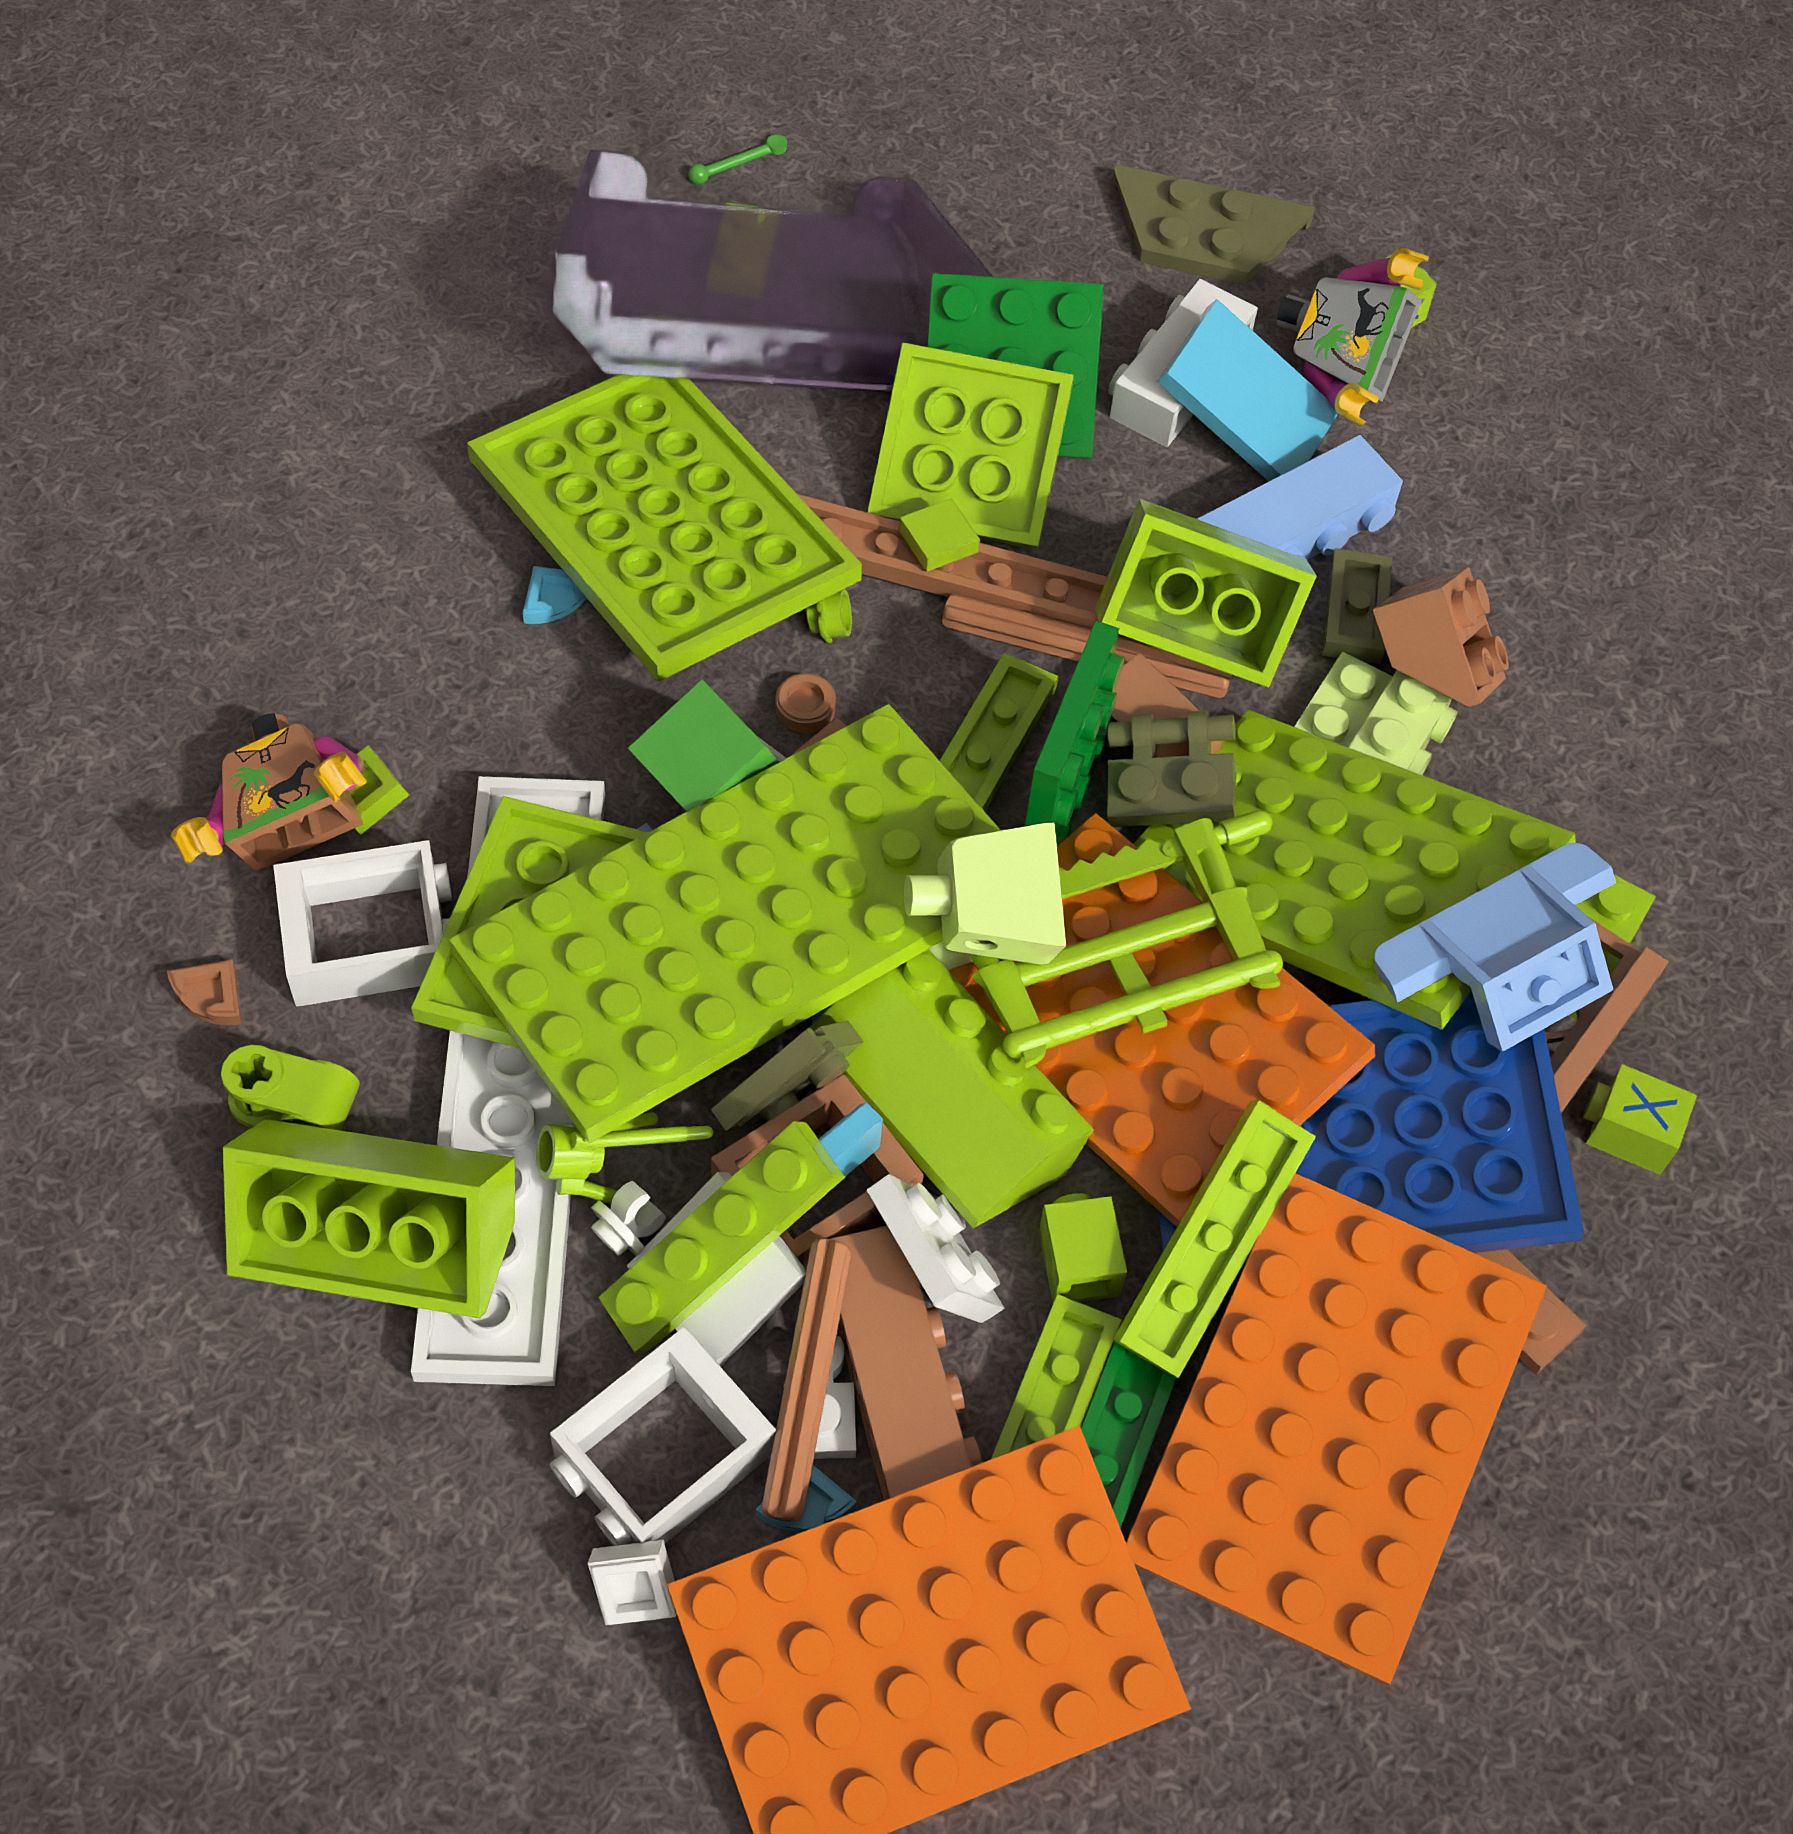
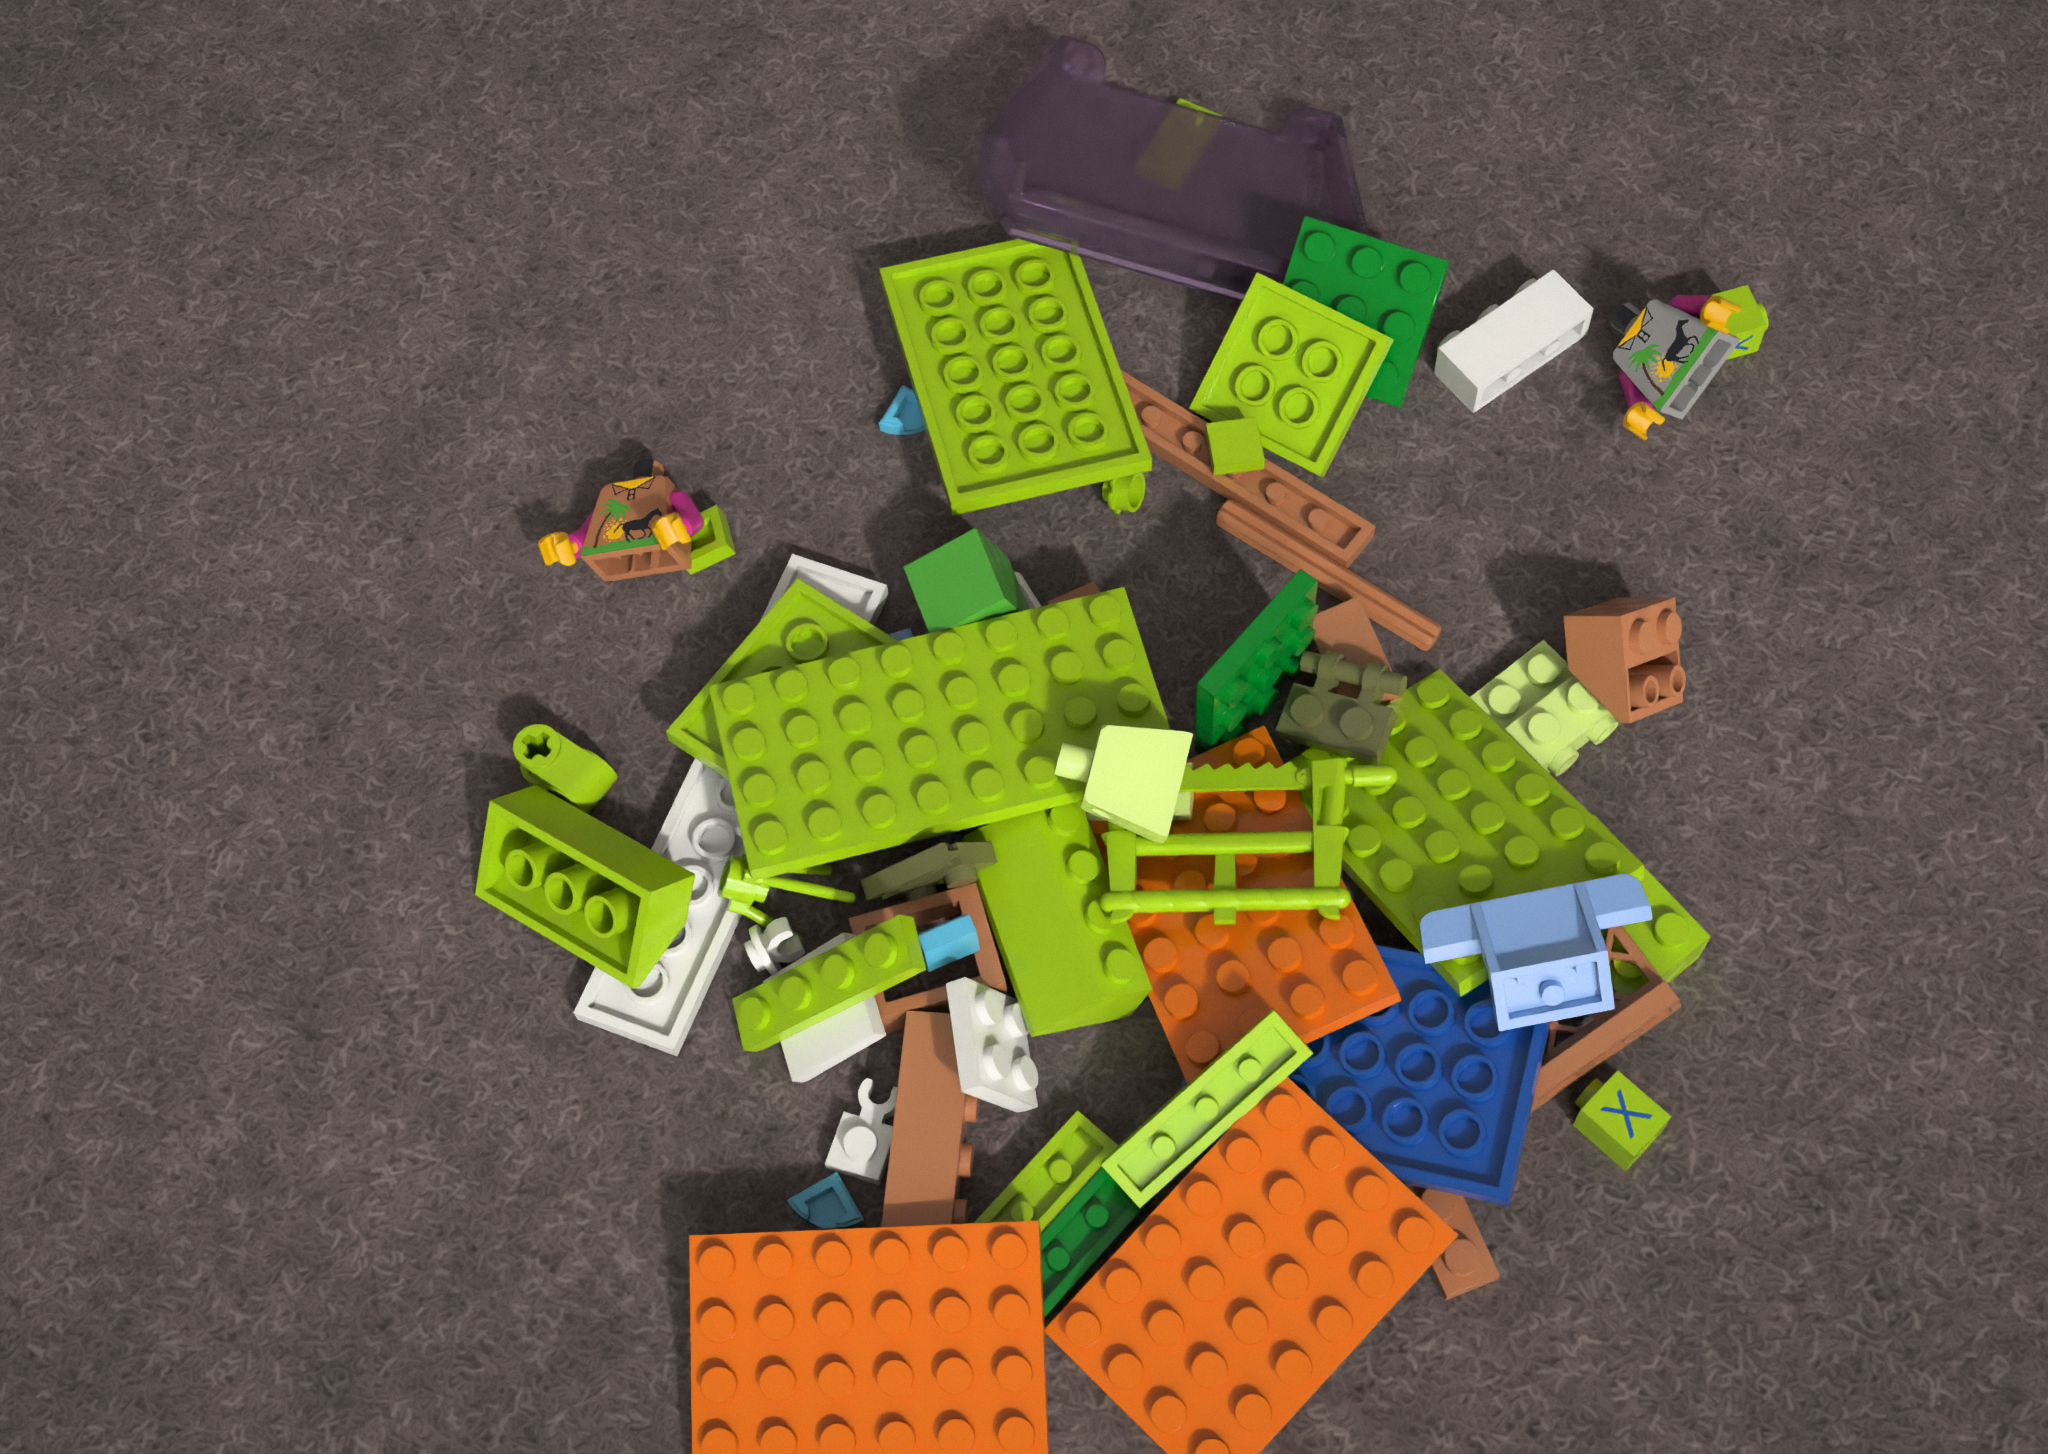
camera: 30 degrees right, 5 degrees up
(209, 991) = (536, 669): nougat tile -> none
(352, 877) = (630, 605): white window -> none
(632, 1582) = (671, 1221): white tile -> none
(699, 174) = (1244, 51): bright green hinge -> none
(717, 1396) = (713, 1086): white window -> none
(805, 703) = (1076, 560): nougat tile -> none
(806, 1381) = (853, 1114): nougat axle -> none
(998, 727) = (1207, 634): lime plate -> none
(1082, 1248) = (1112, 1079): lime brick -> none
(1204, 593) = (1429, 560): lime brick -> none
(1205, 225) = (1592, 215): olive wing -> none
(1247, 393) = (1552, 388): medium azure tile -> none
(1317, 502) = (1542, 511): light blue brick -> none
(1355, 588) = (1579, 585): olive plate -> none

